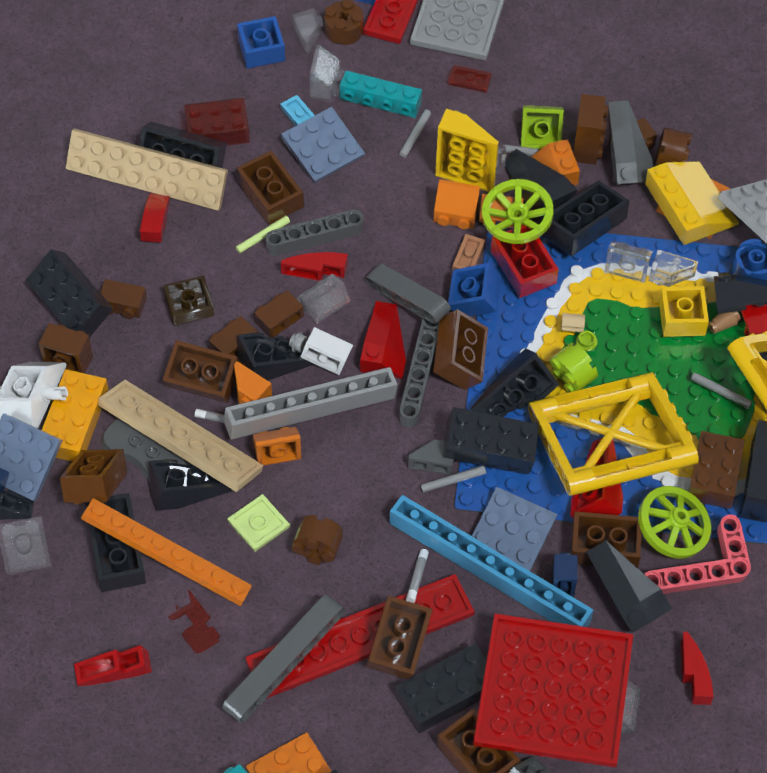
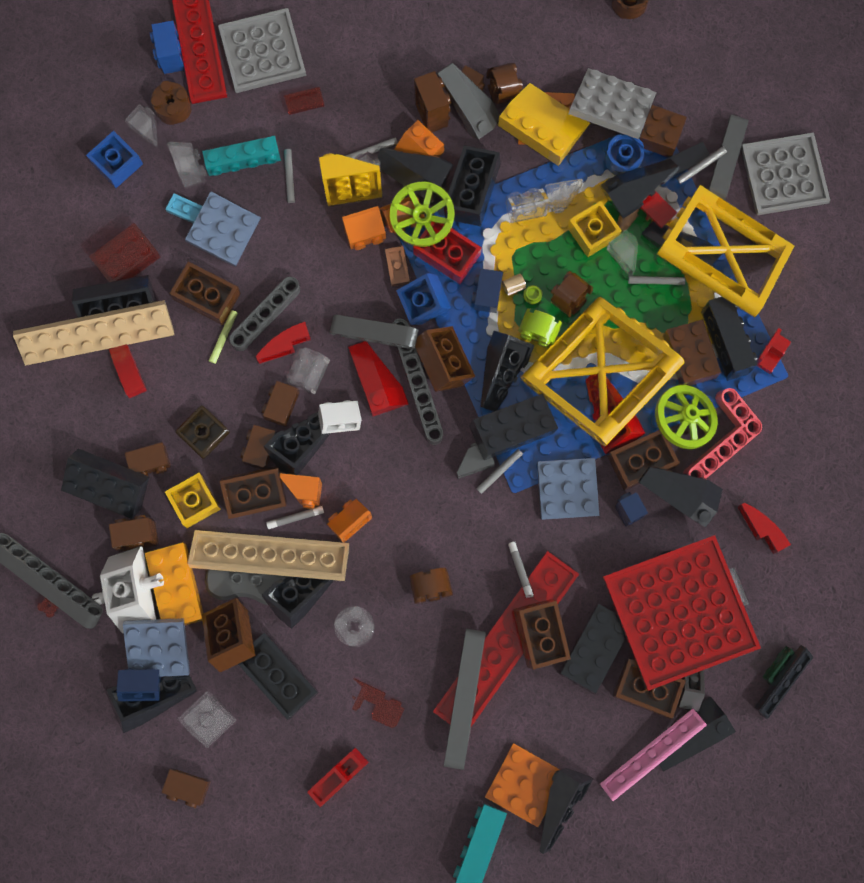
camera: 30 degrees left, 20 degrees up
(140, 351) = (192, 500): none -> yellow brick
(166, 552) = (322, 664): orange plate -> none
(219, 539) = (343, 624): none -> clear brick
(258, 522) = (373, 591): yellowish green tile -> none
(298, 342) = (313, 423): light grey plate -> none
(310, 403) = (355, 472): light grey brick -> none
(488, 564) = (571, 530): dark azure brick -> none
(541, 125) = (387, 115): lime slope -> none
(543, 315) = (488, 290): none -> dark blue brick
(624, 354) = (571, 293): none -> reddish brown brick
(704, 346) = (624, 251): none -> clear slope

